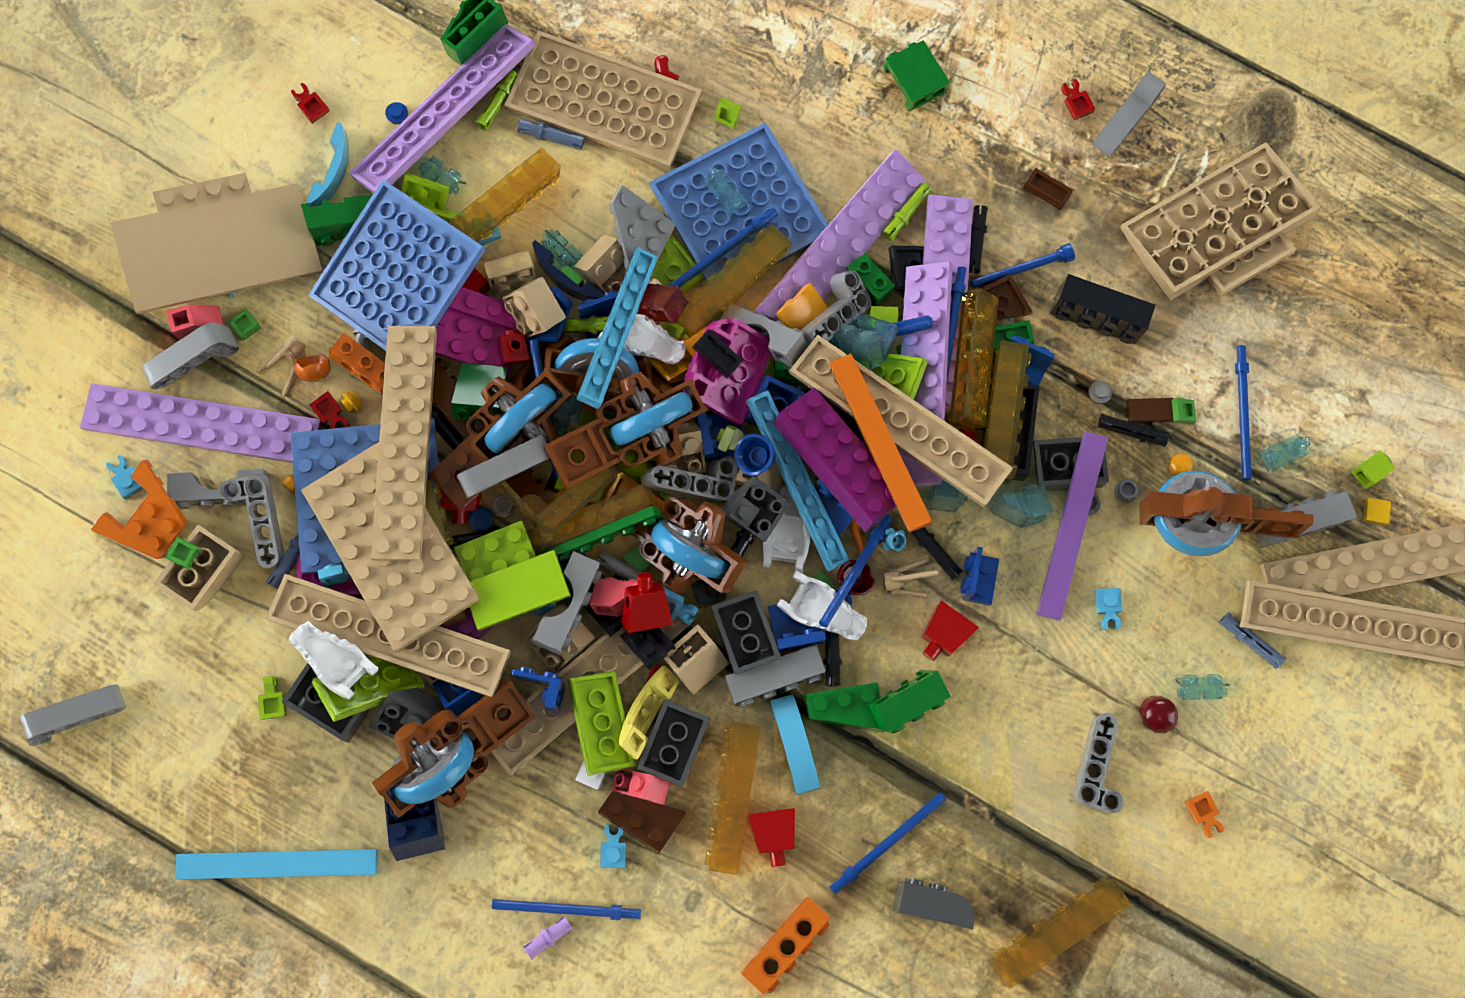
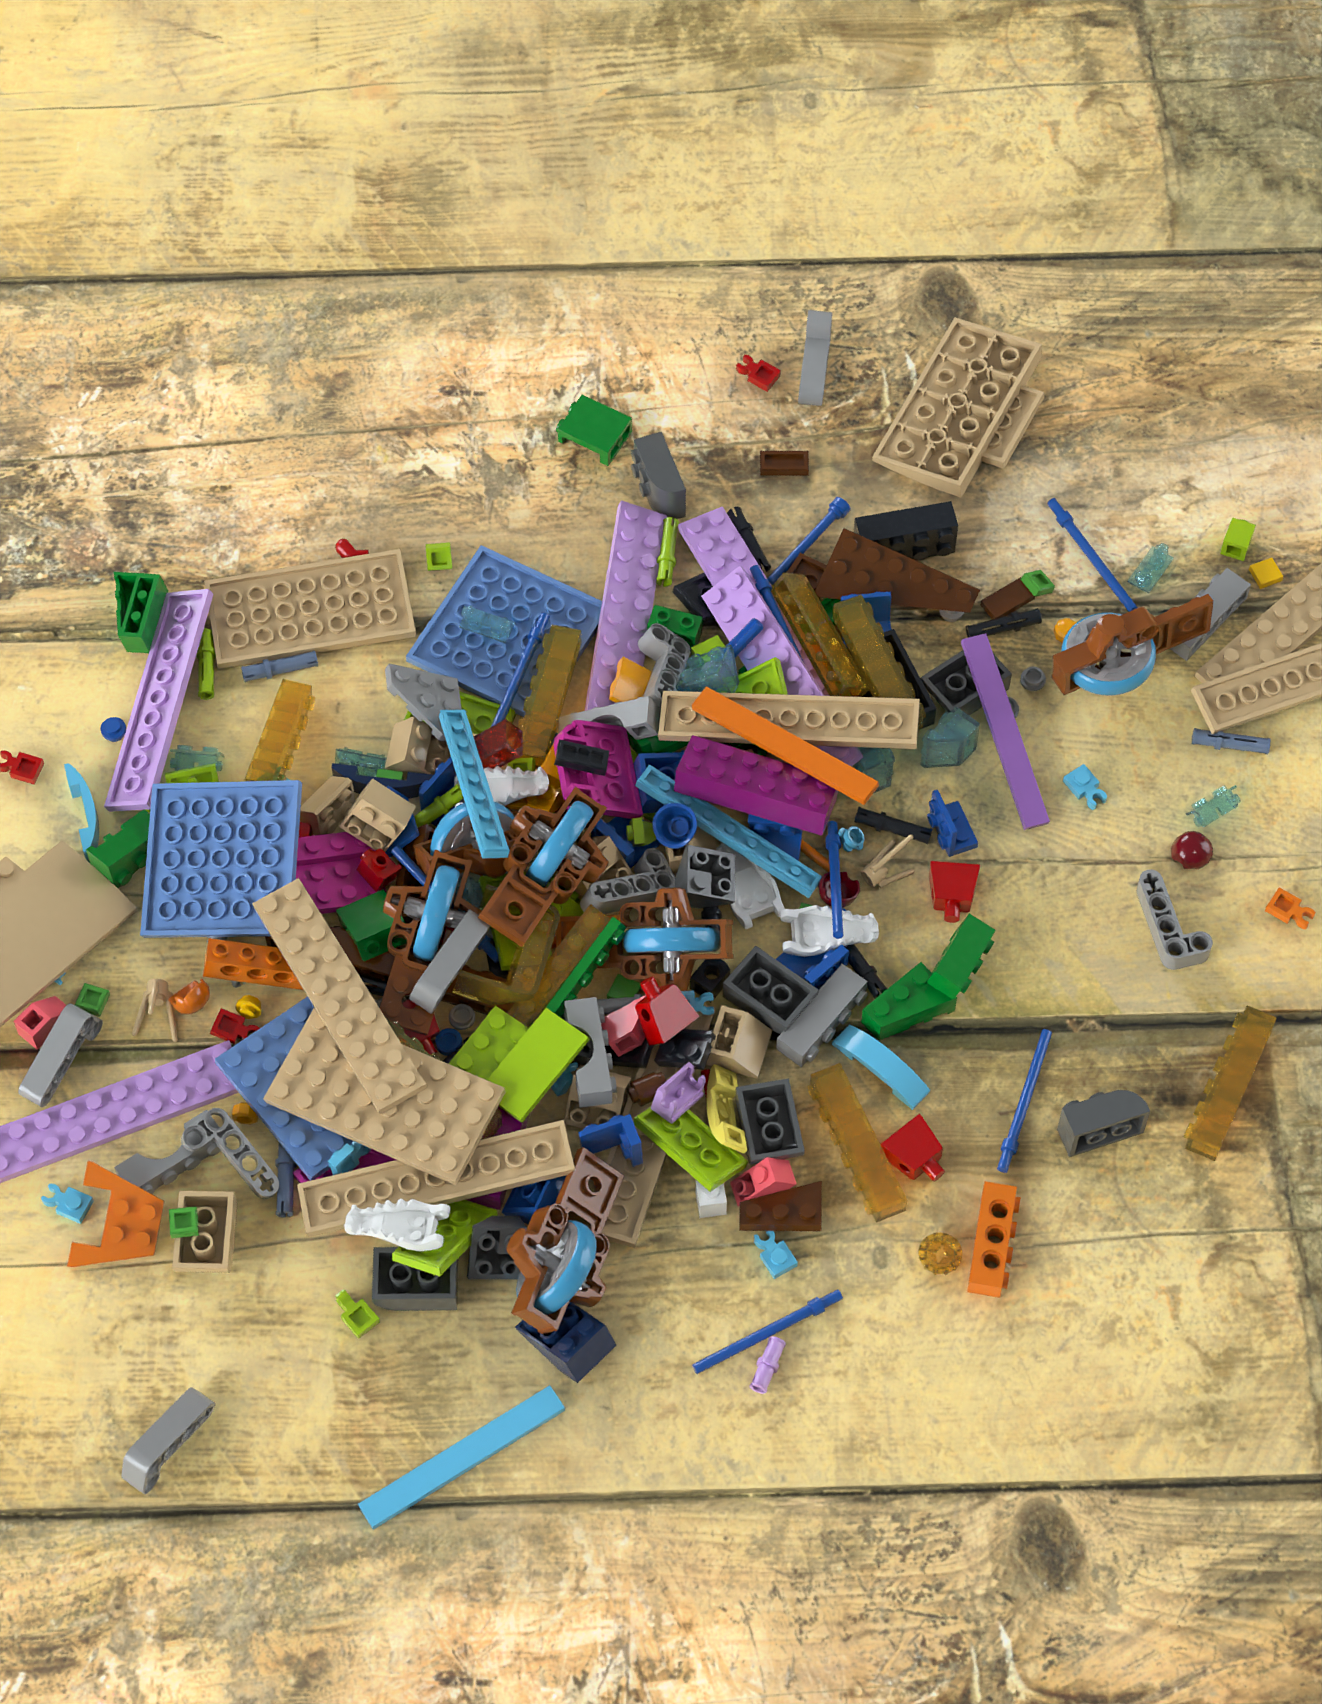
camera: 25 degrees left, 15 degrees down
(599, 657) = (645, 1088): none -> reddish brown brick
(616, 679) = (678, 1094): none -> lavender hinge
(737, 942) = (951, 1249): none -> clear yellow gear
(938, 144) = (658, 476): none -> dark grey brick
(1051, 322) = (869, 567): none -> reddish brown wing

